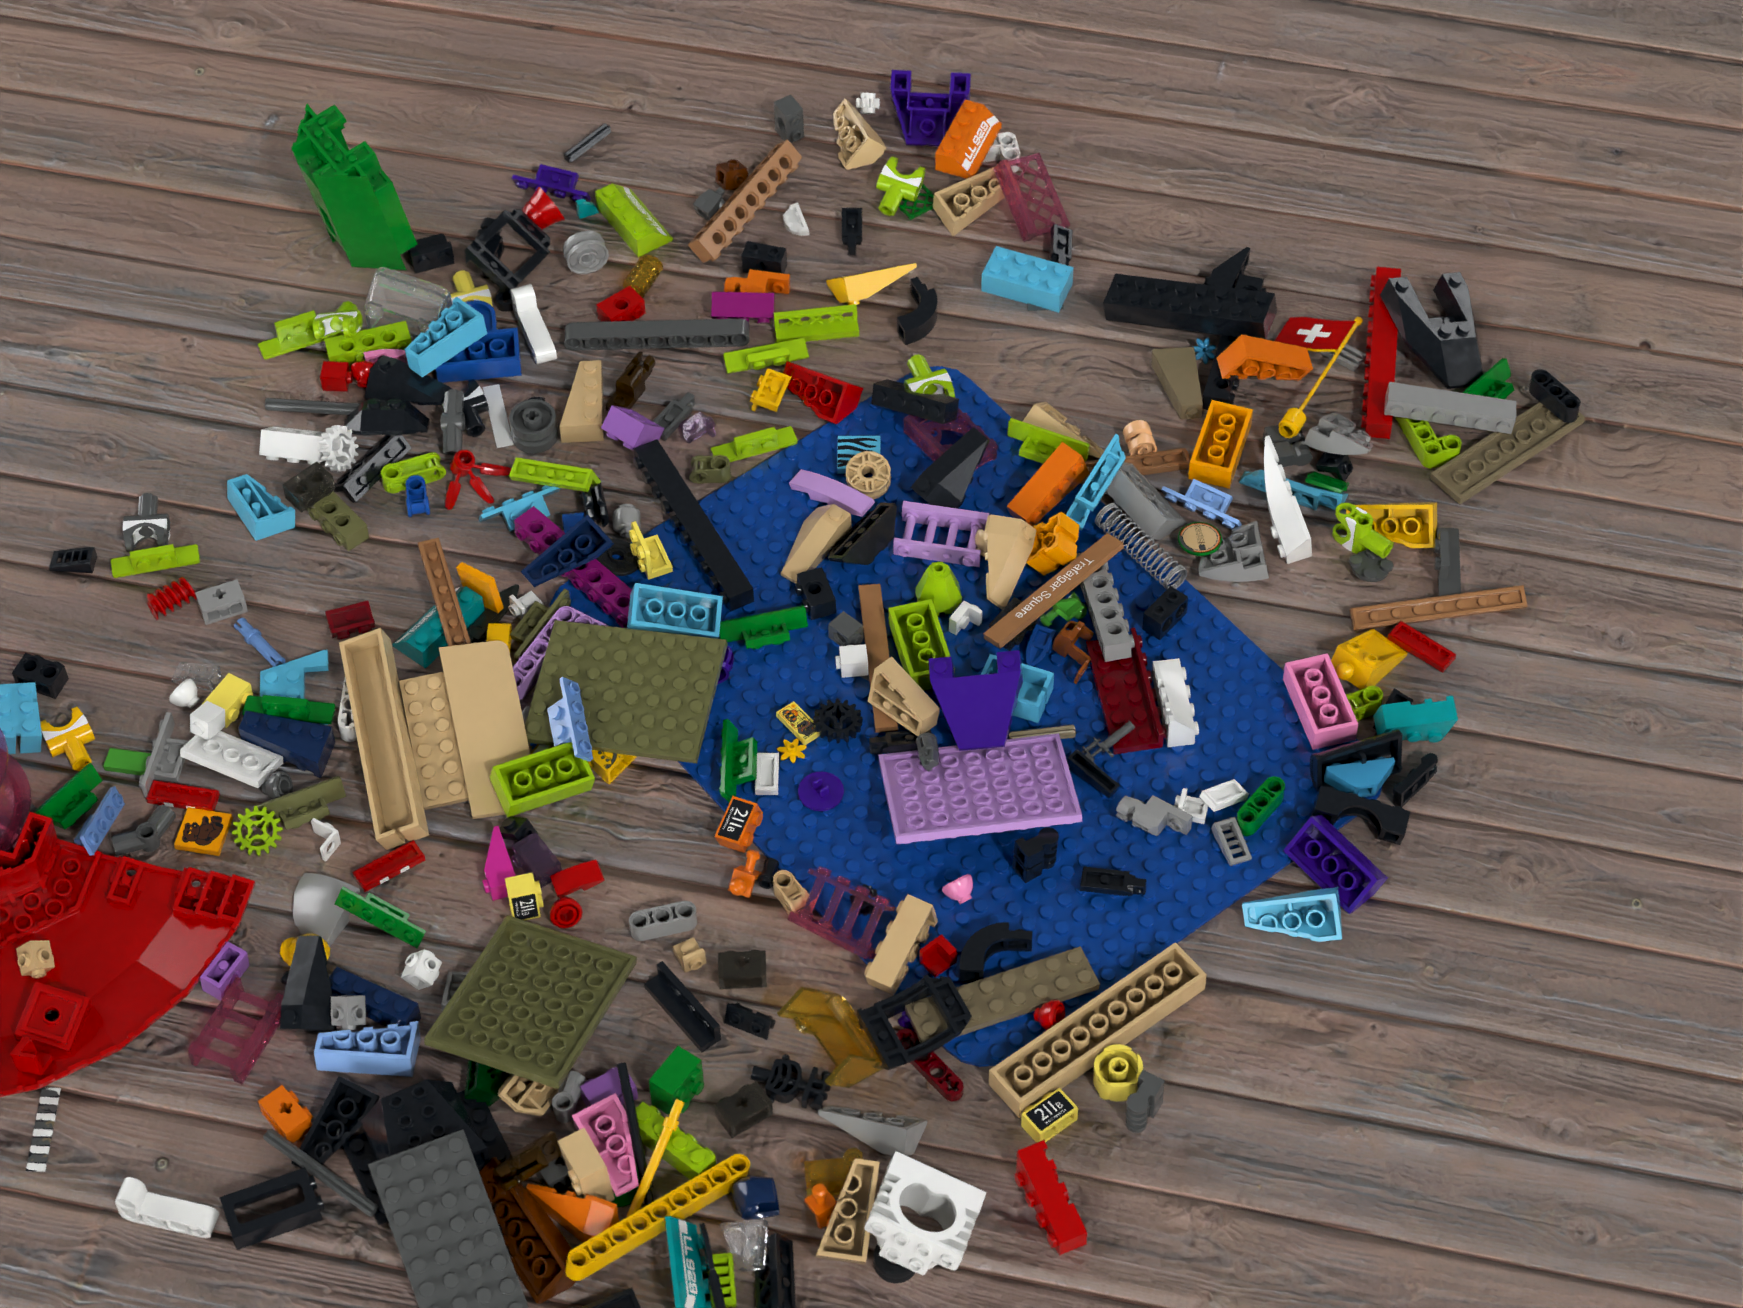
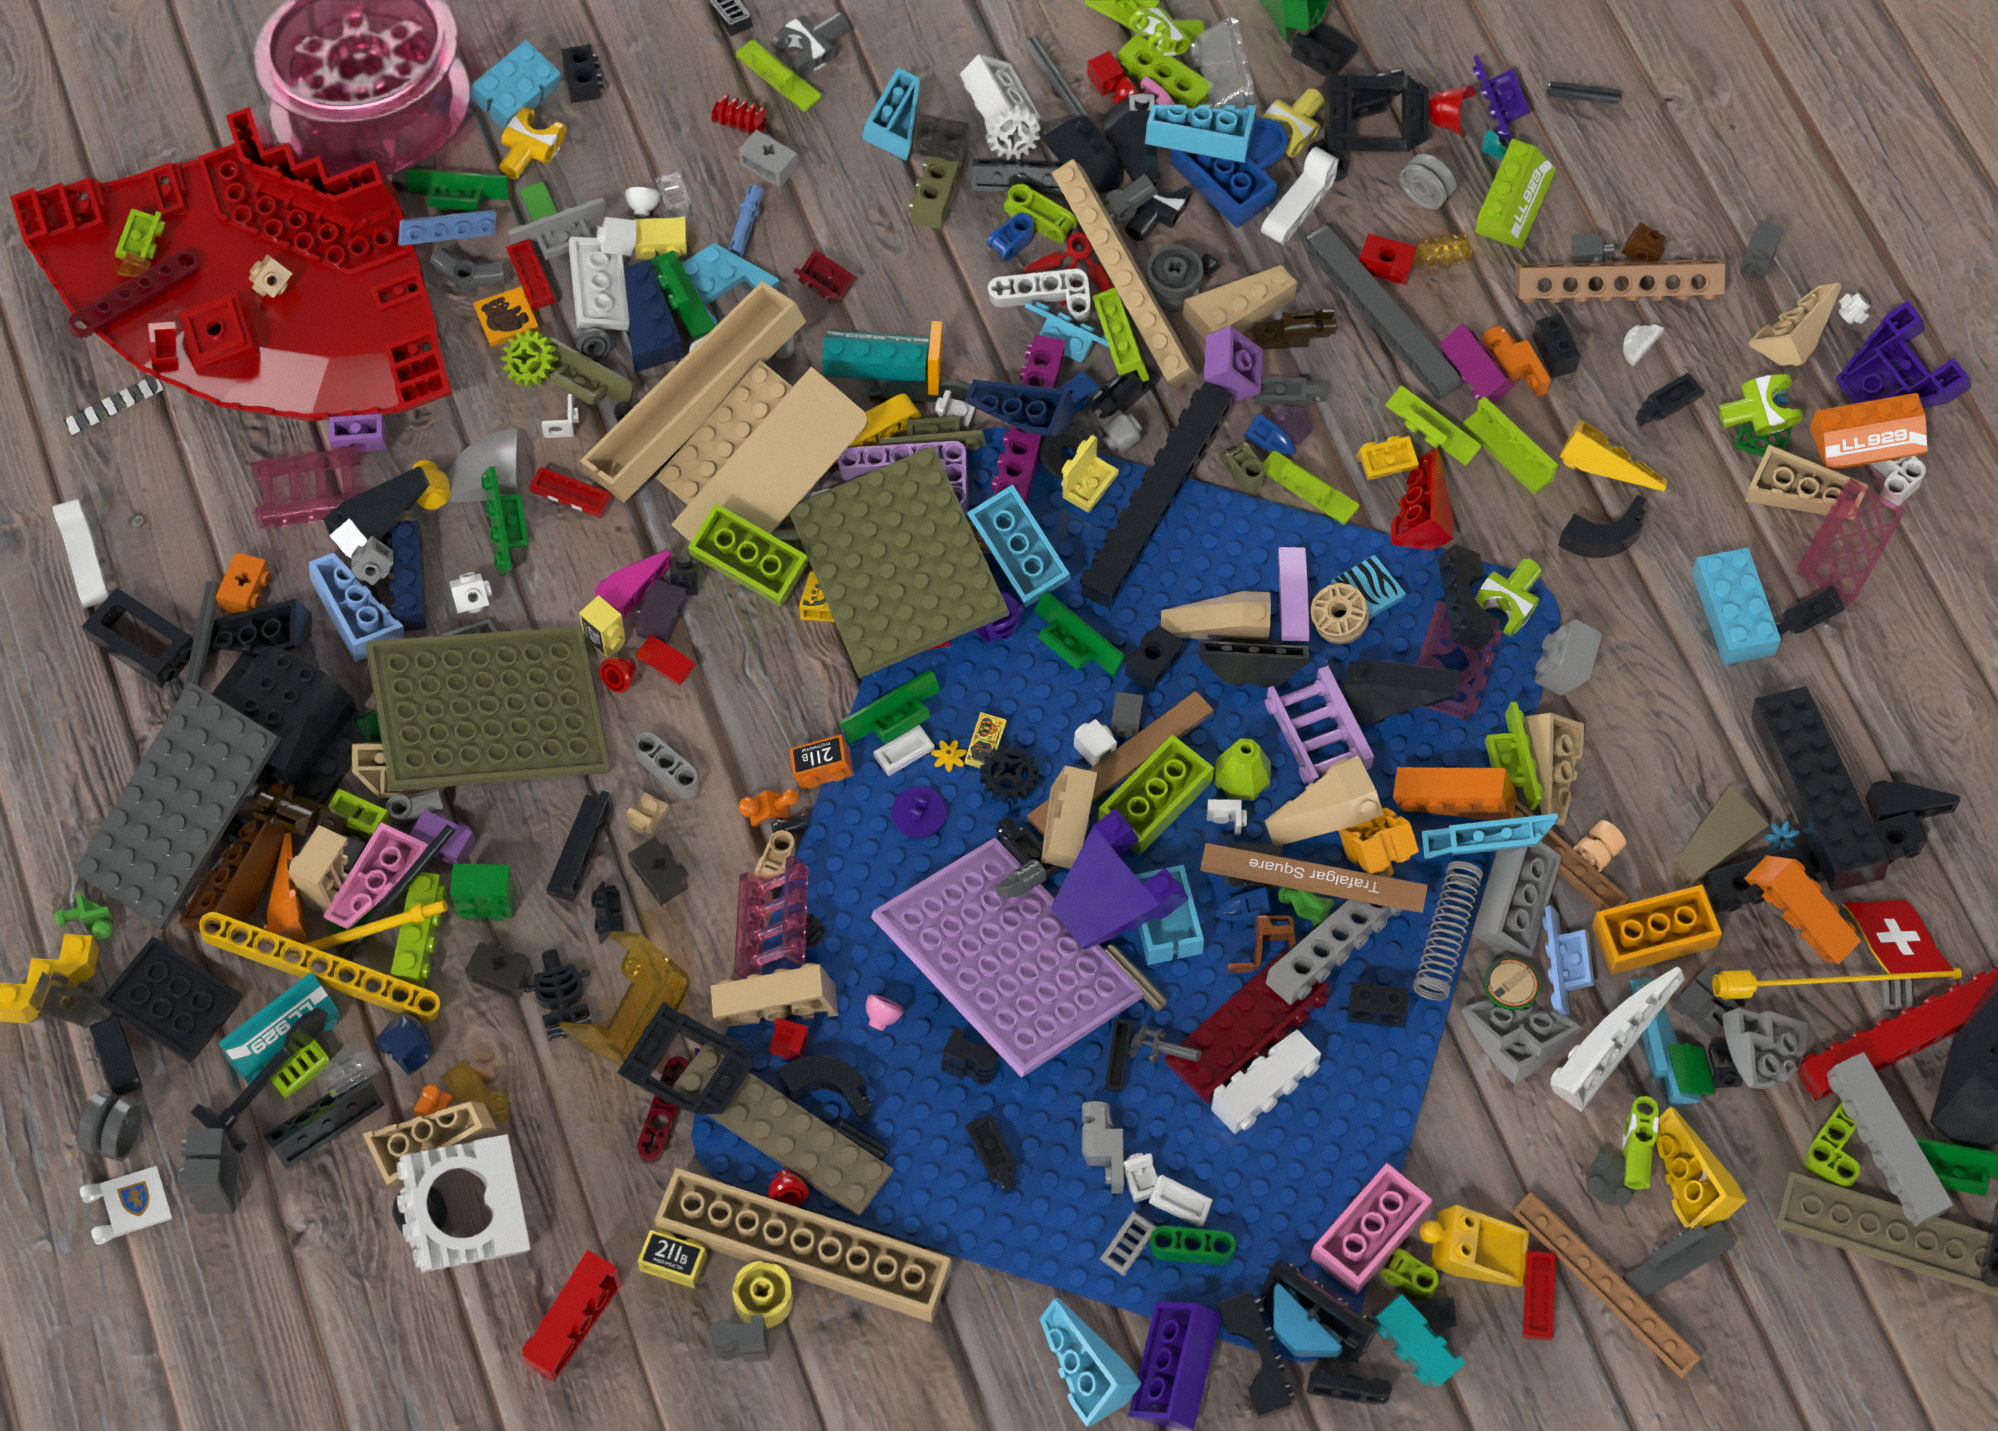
camera: 55 degrees right, 10 degrees up
(351, 795) = (617, 410): none -> black hinge
(443, 592) = (896, 334): medium nougat tile -> none
(474, 504) = (1037, 282): none -> white beam
(498, 416) = (1178, 235): white sticker -> none
(507, 445) = (1125, 274): none -> tan brick
(558, 1121) = (363, 815): none -> lime brick
(569, 721) = (822, 535): medium blue bracket -> none
(696, 444) = (1268, 436): none -> blue plate
(878, 1132) = (554, 1113): light grey wedge -> none
(998, 377) = (1567, 657): none -> light grey brick
(1046, 951) = (864, 1140): none -> black axle

